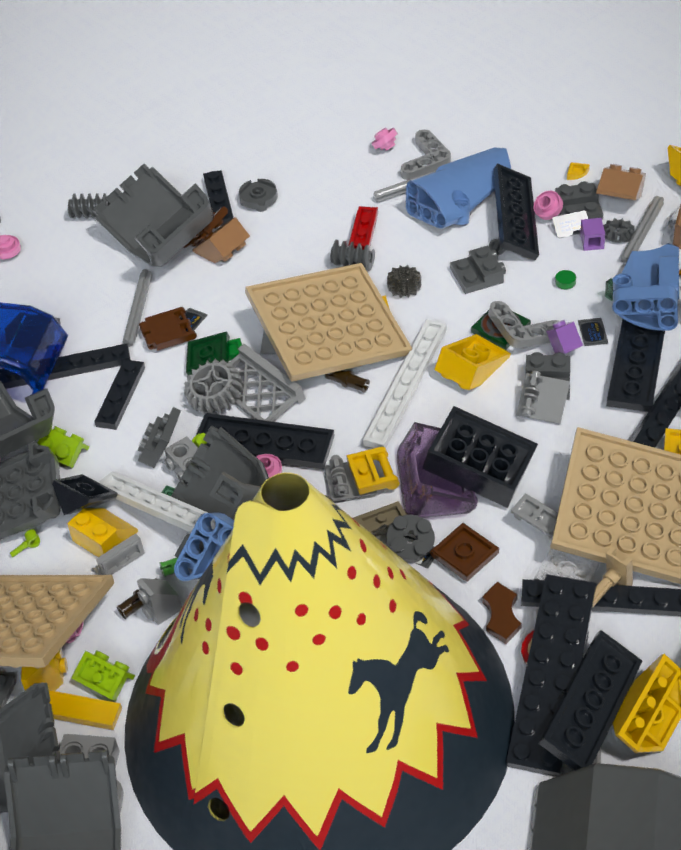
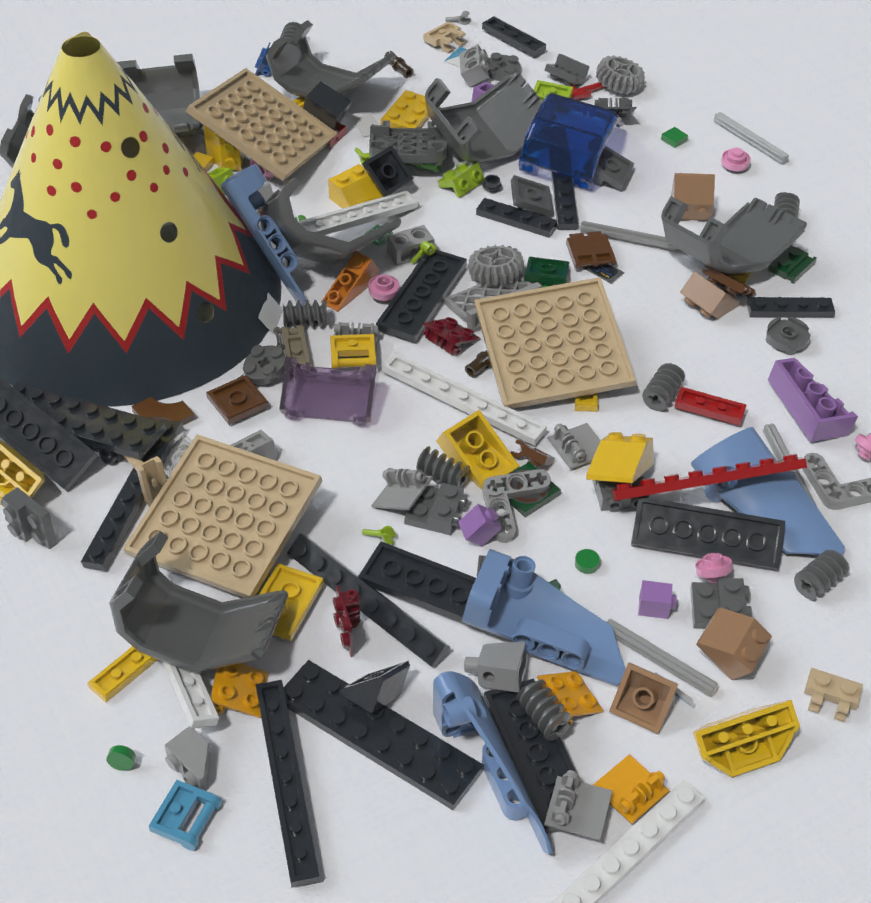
camera: 95 degrees right, 0 degrees up
(66, 420) = (491, 183): none -> black plate
(84, 263) = (697, 192): none -> medium nougat slope
(91, 380) = (531, 196): none -> dark grey plate
(120, 555) = (323, 197): light grey plate -> none
(157, 438) = (440, 224): dark grey plate -> none
(319, 408) = (448, 334): none -> dark red hinge
(345, 171) = (809, 403): none -> medium lavender wedge
(404, 281) = (613, 419): clear smoke gear -> none
(438, 301) = (575, 445): none -> light grey hinge
(463, 322) = (536, 456): none -> reddish brown plate
(465, 257) = (621, 458): none -> yellow slope
(476, 202) = (718, 475): none -> red plate
(479, 456) = (328, 414): black slope -> none
(506, 374) = (440, 469): none -> dark grey piece
(529, 154) = (821, 574): none -> dark grey piece
(569, 224) = (683, 587): sticker -> none
(577, 170) = (790, 622): yellow tile -> none
(593, 408) = (385, 533): none -> lime hand
(623, 235) = (667, 641): dark grey gear -> none
(628, 146) = (832, 689): none -> tan plate

